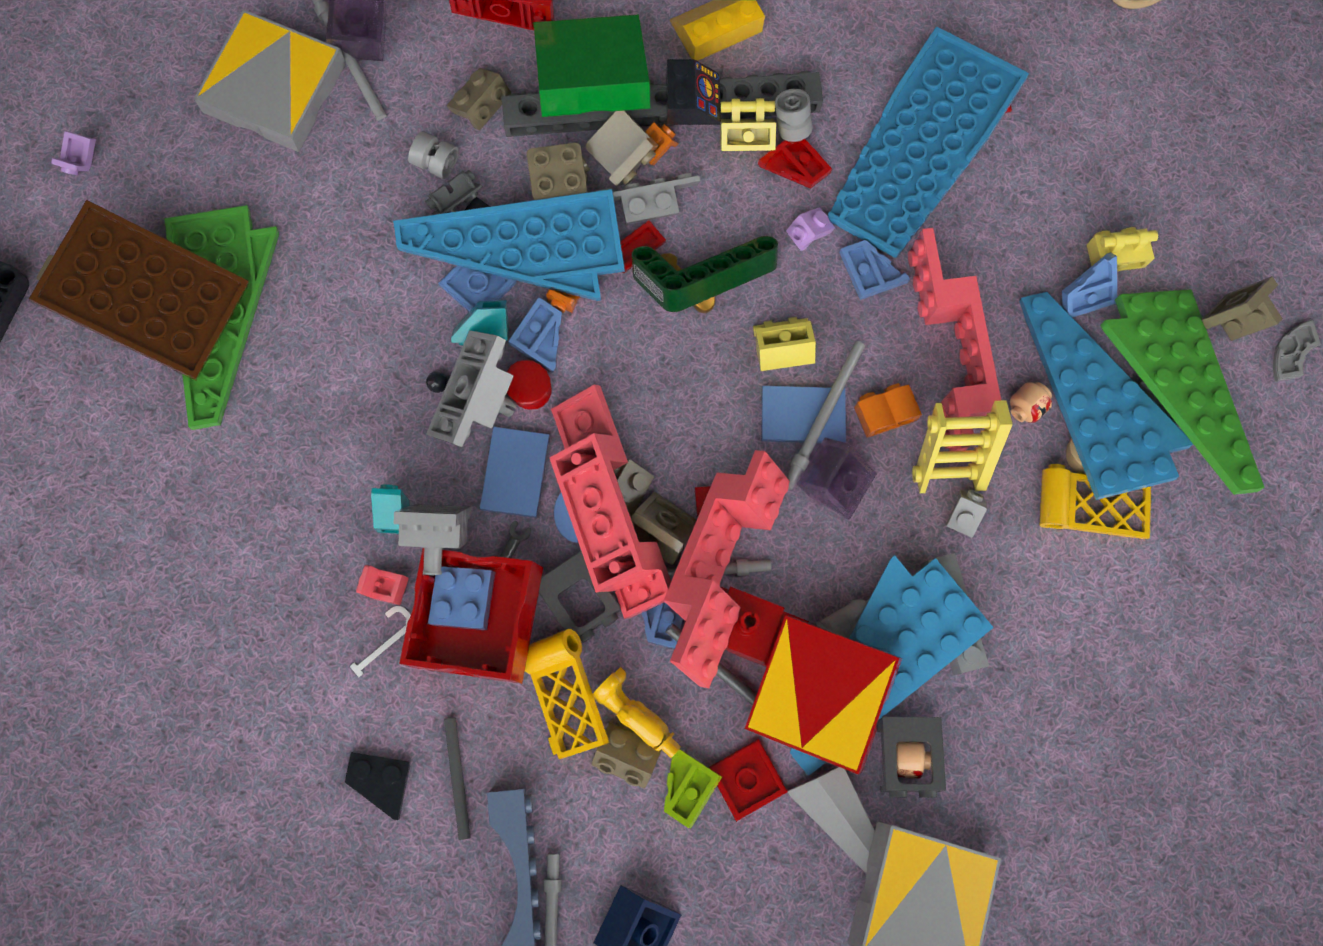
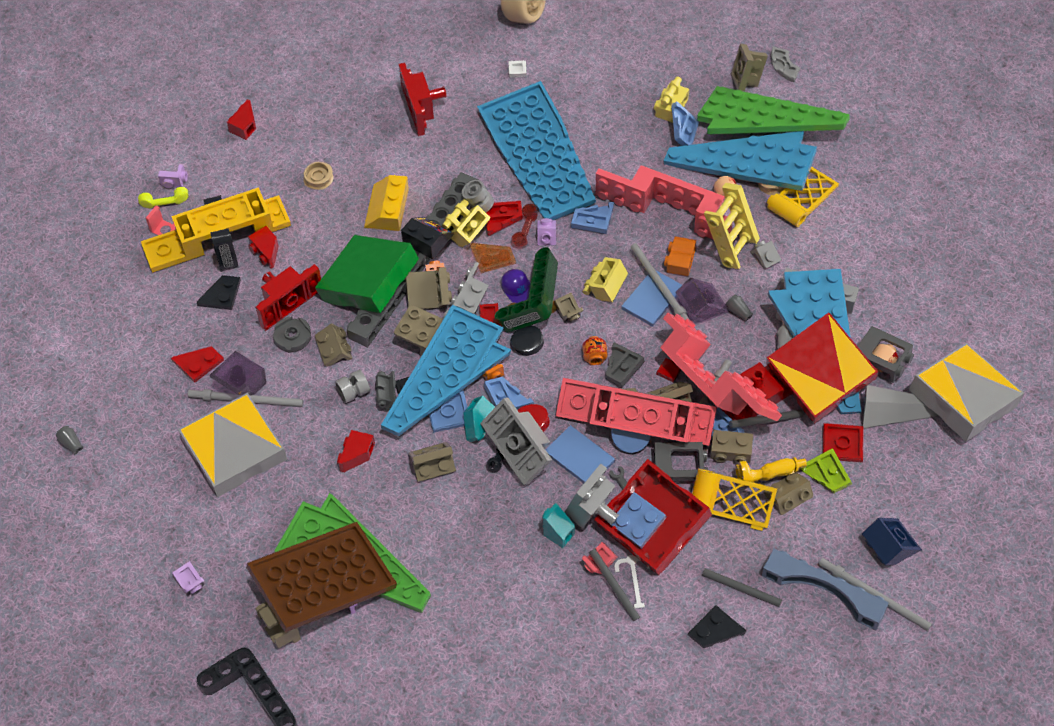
camera: 45 degrees left, 20 degrees down
(351, 217) = (356, 450): none -> red slope
(359, 625) = (614, 585): none -> dark grey bar
(393, 307) = (432, 461): none -> dark tan bracket
(463, 57) = (294, 343): none -> dark grey plate
(634, 308) = (527, 340): none -> black piece
(643, 646) = (731, 446): none -> dark tan bracket
(674, 395) = (594, 350): none -> orange head
(676, 441) = (622, 364): none -> dark grey wing
(705, 241) = (515, 285): none -> dark purple cap
(714, 325) = (568, 307): none -> dark tan bracket
(729, 189) = (492, 256): none -> clear orange wing
(776, 205) = (530, 214): none -> clear red bar
(859, 529) = (738, 307): none -> dark grey cone
(1034, 35) = (517, 68): none -> white tile

